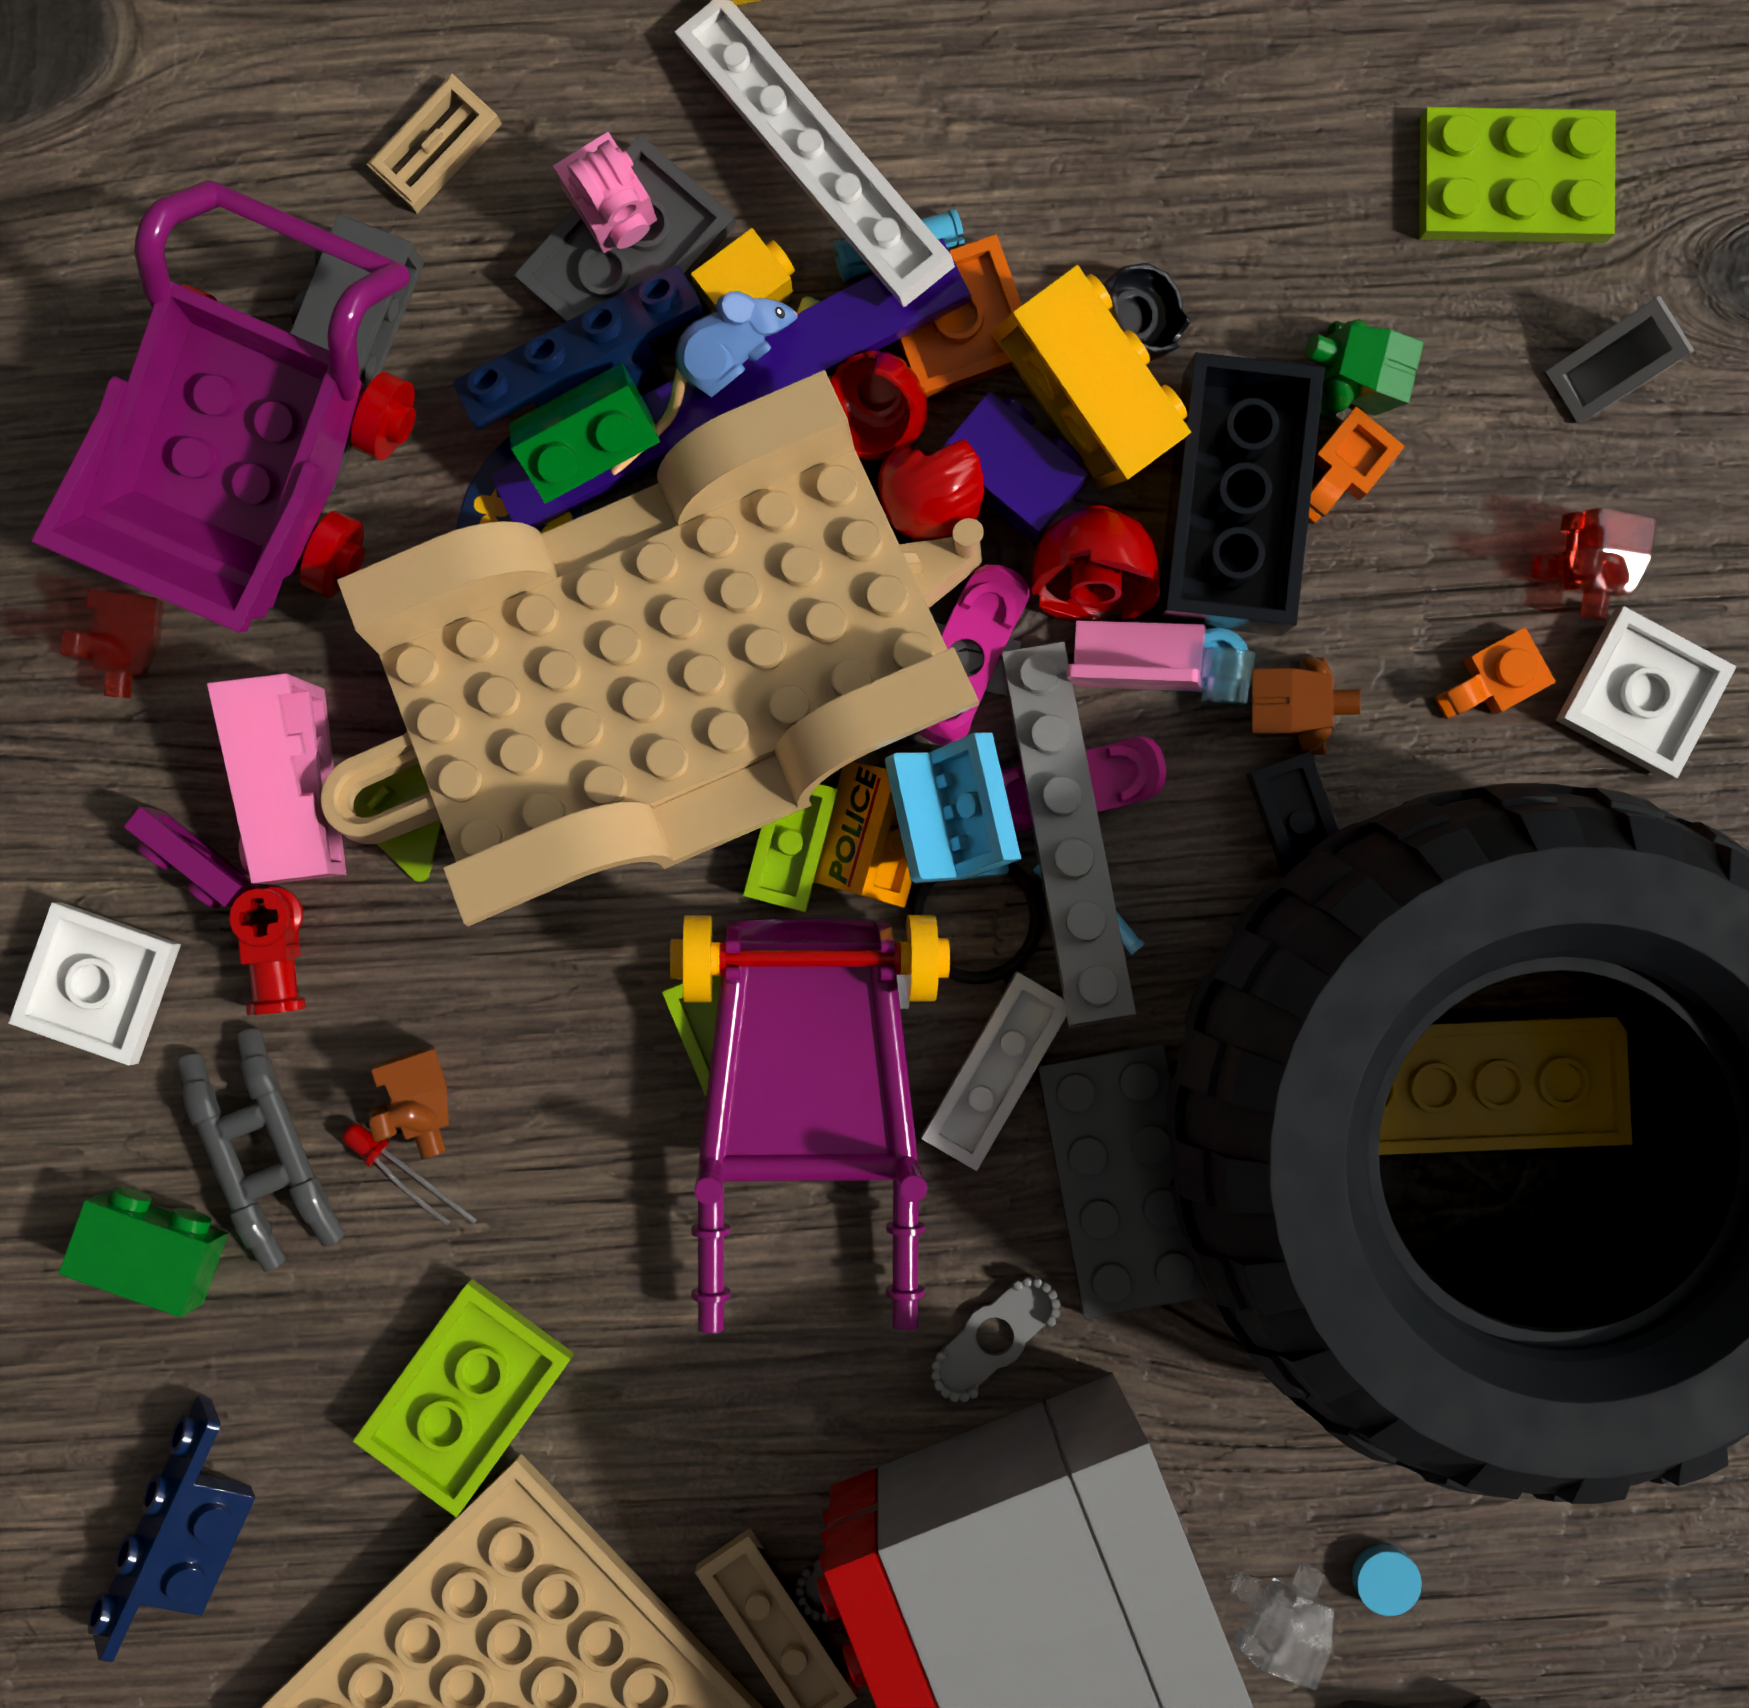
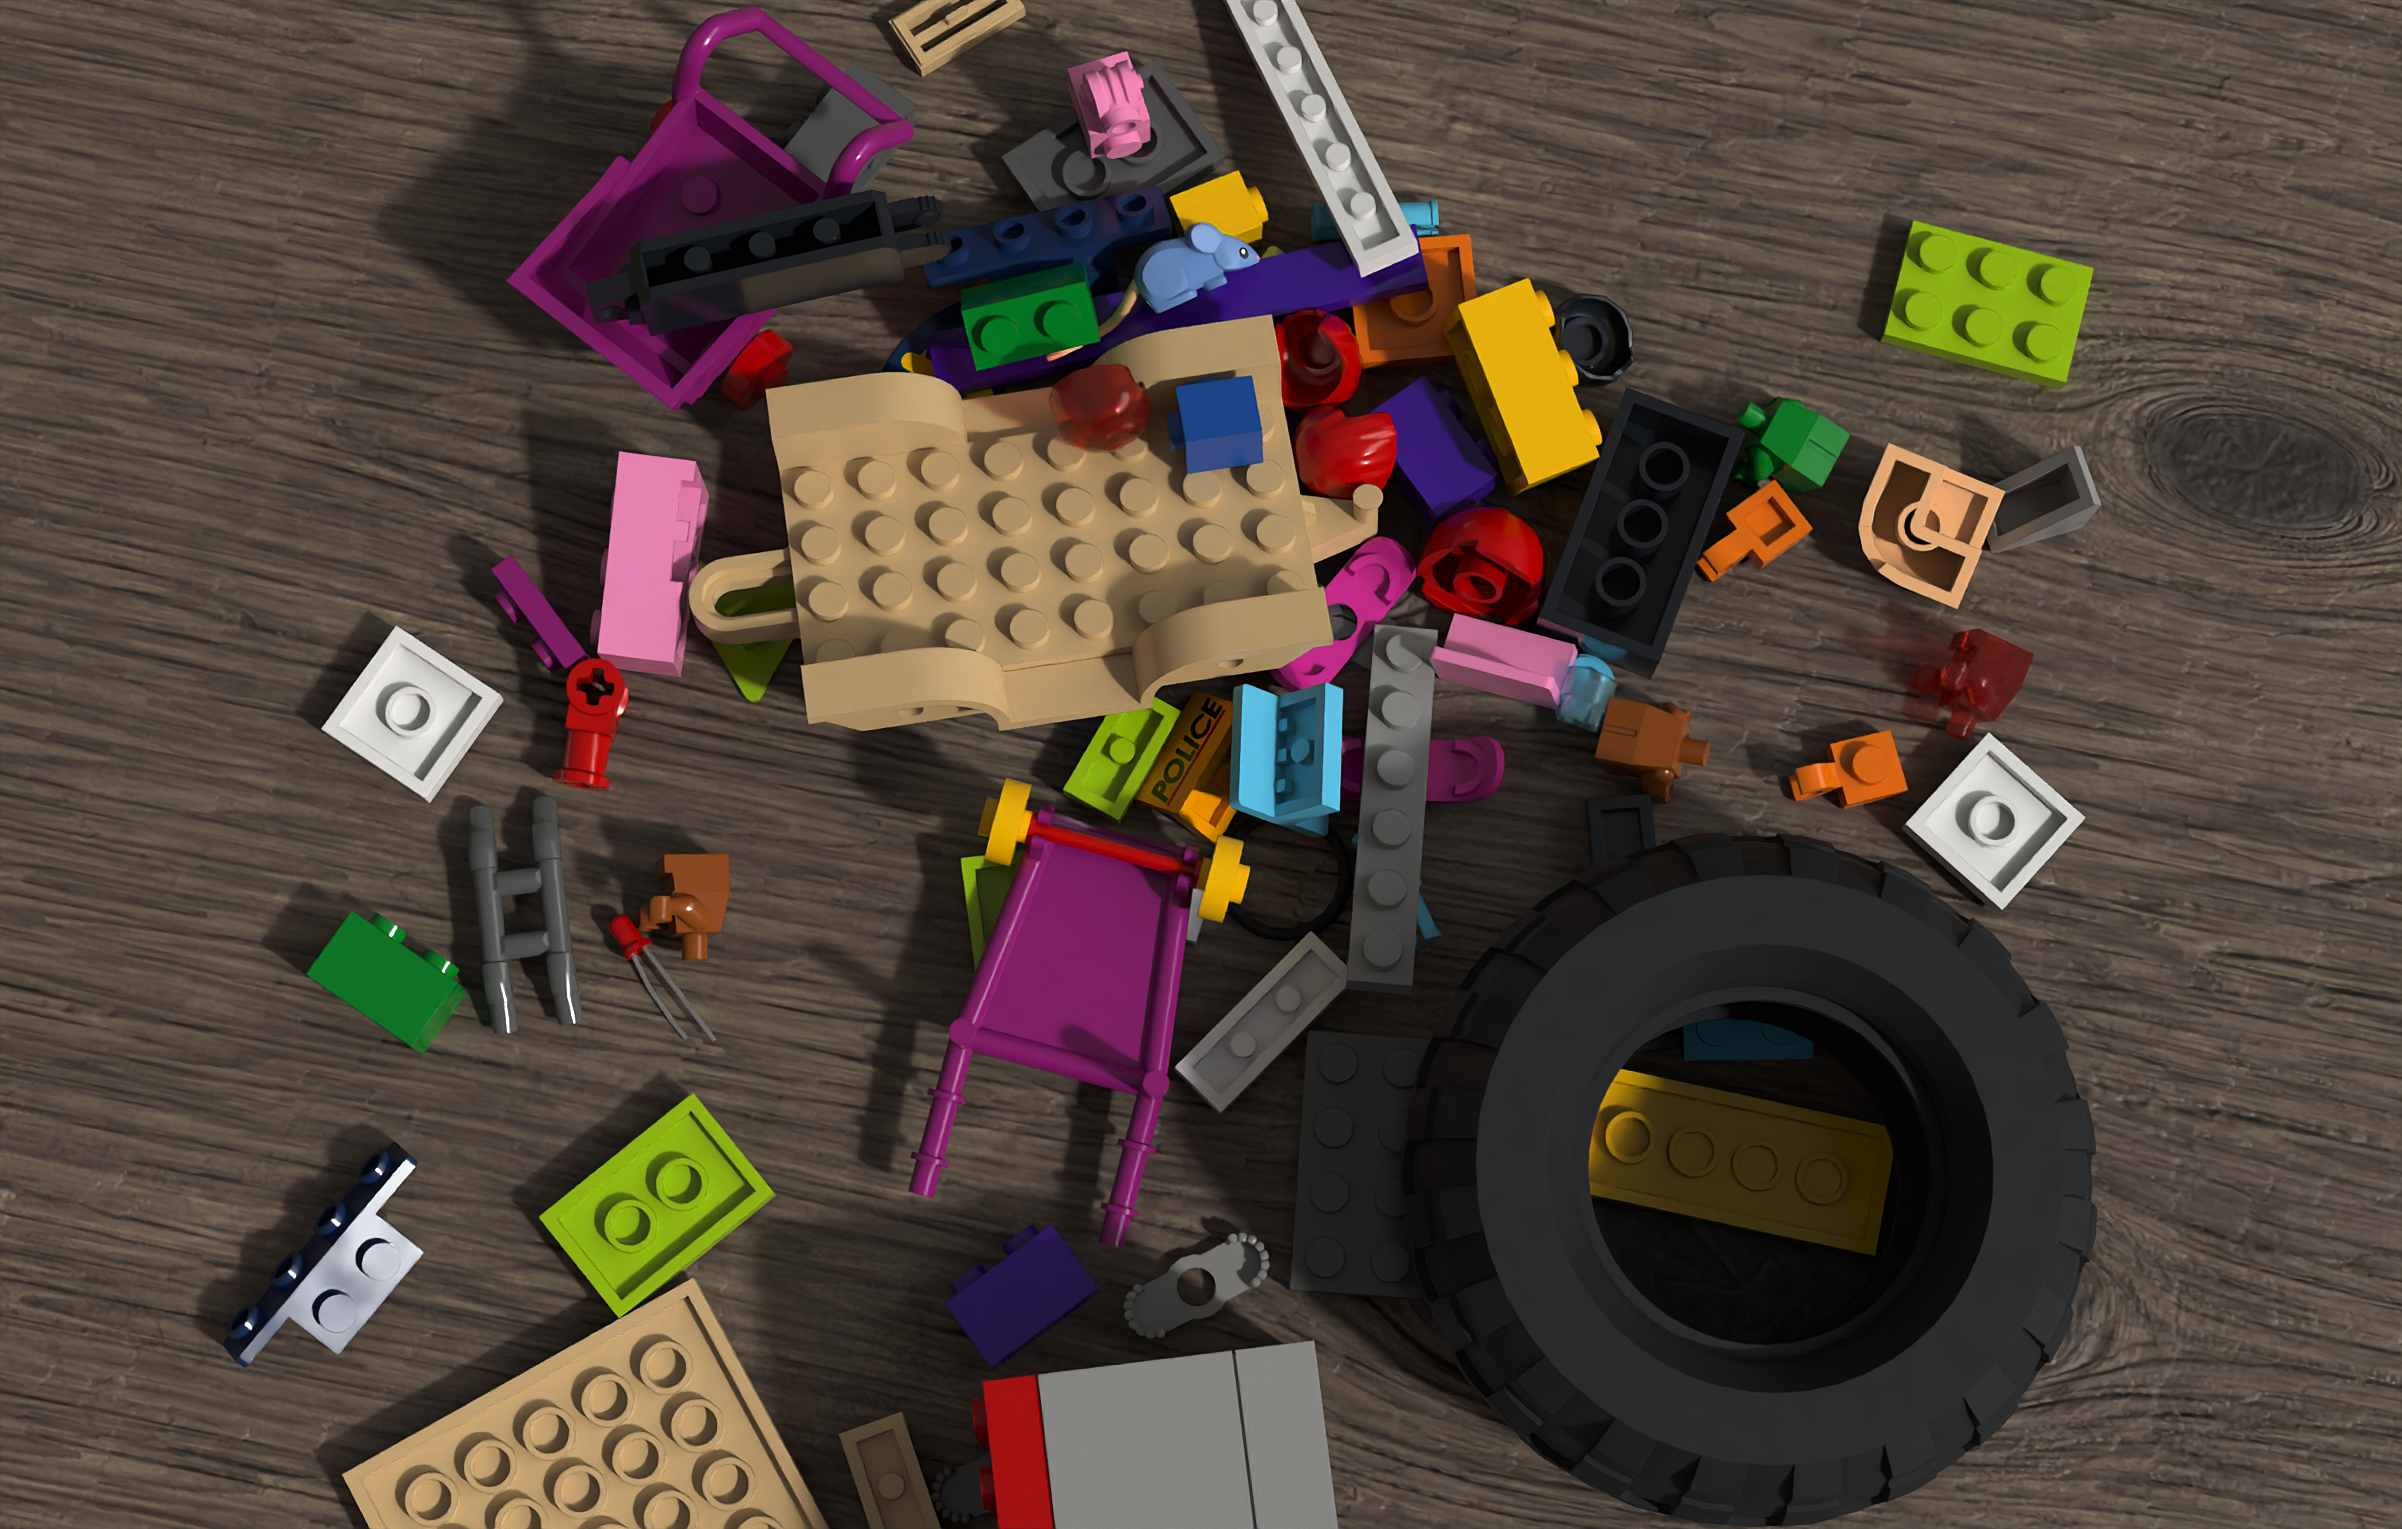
camera: 10 degrees right, 10 degrees down
(122, 639) = (534, 398): clear red piece -> none
(290, 452) = (769, 261): none -> black hinge
(678, 513) = (1100, 408): none -> clear red hair
(799, 498) = (1216, 424): none -> blue brick
(831, 1395) = (1020, 1295): none -> dark purple brick
(1519, 414) = (1926, 524): none -> light nougat brick

